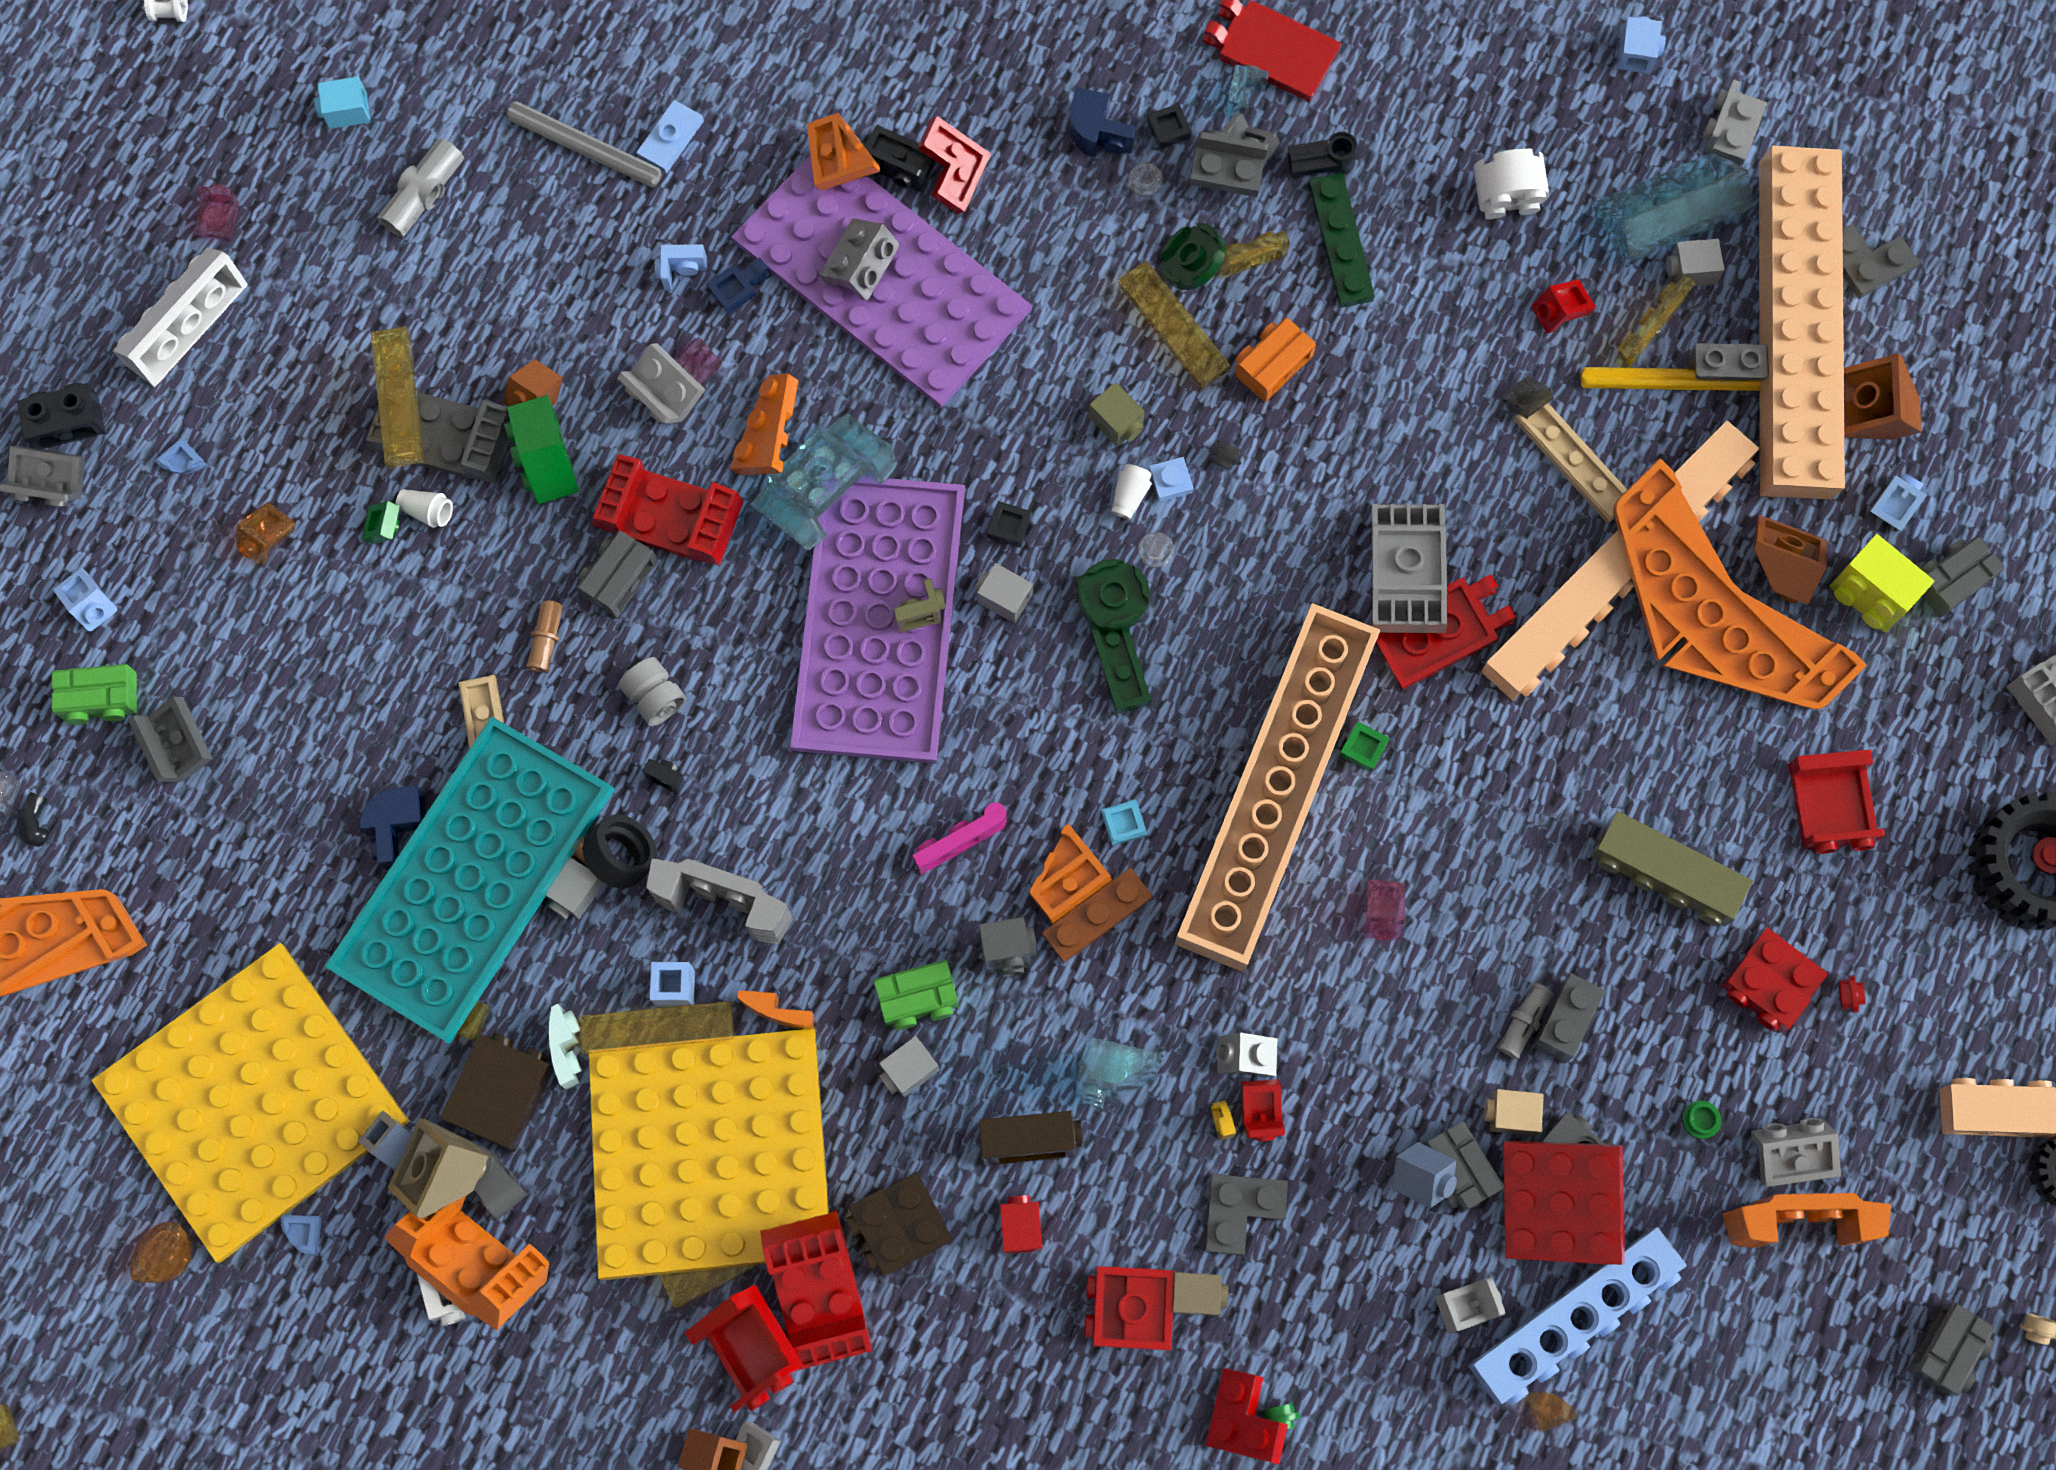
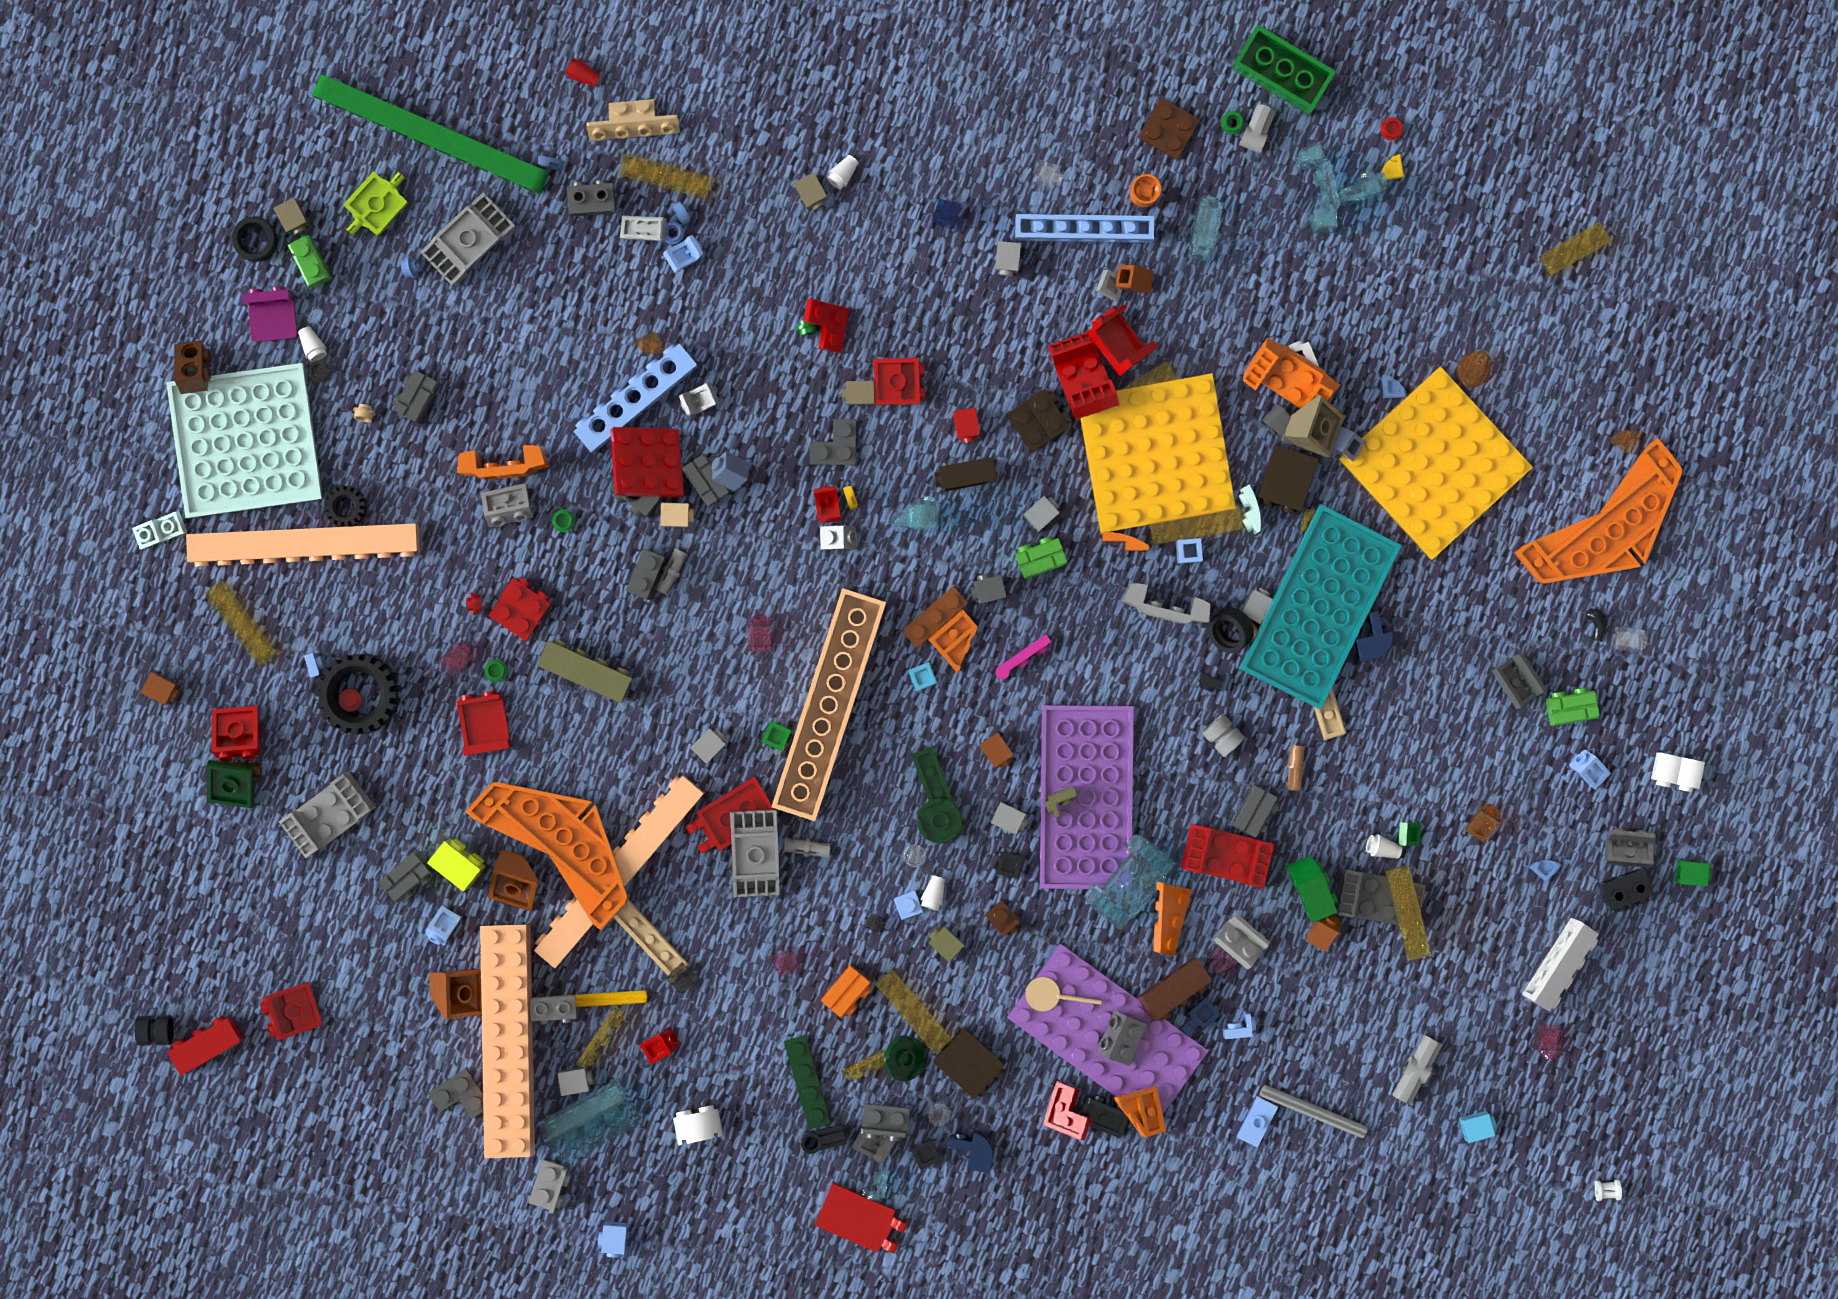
camera: 175 degrees right, 15 degrees up
(771, 322) = (1175, 989): none -> reddish brown brick
(970, 331) = (1044, 995): none -> tan piece
(1014, 696) = (997, 751): none -> dark orange brick
(1024, 446) = (1003, 918): none -> reddish brown bracket
(1094, 244) = (969, 1063): none -> dark brown brick
(1324, 574) = (807, 847): none -> light grey pin
(1366, 411) = (785, 962): none -> clear pink slope
(1473, 739) = (709, 744): none -> light grey brick
(1814, 885) = (495, 670): none -> green plate
(1878, 909) = (456, 658): none -> clear pink bracket

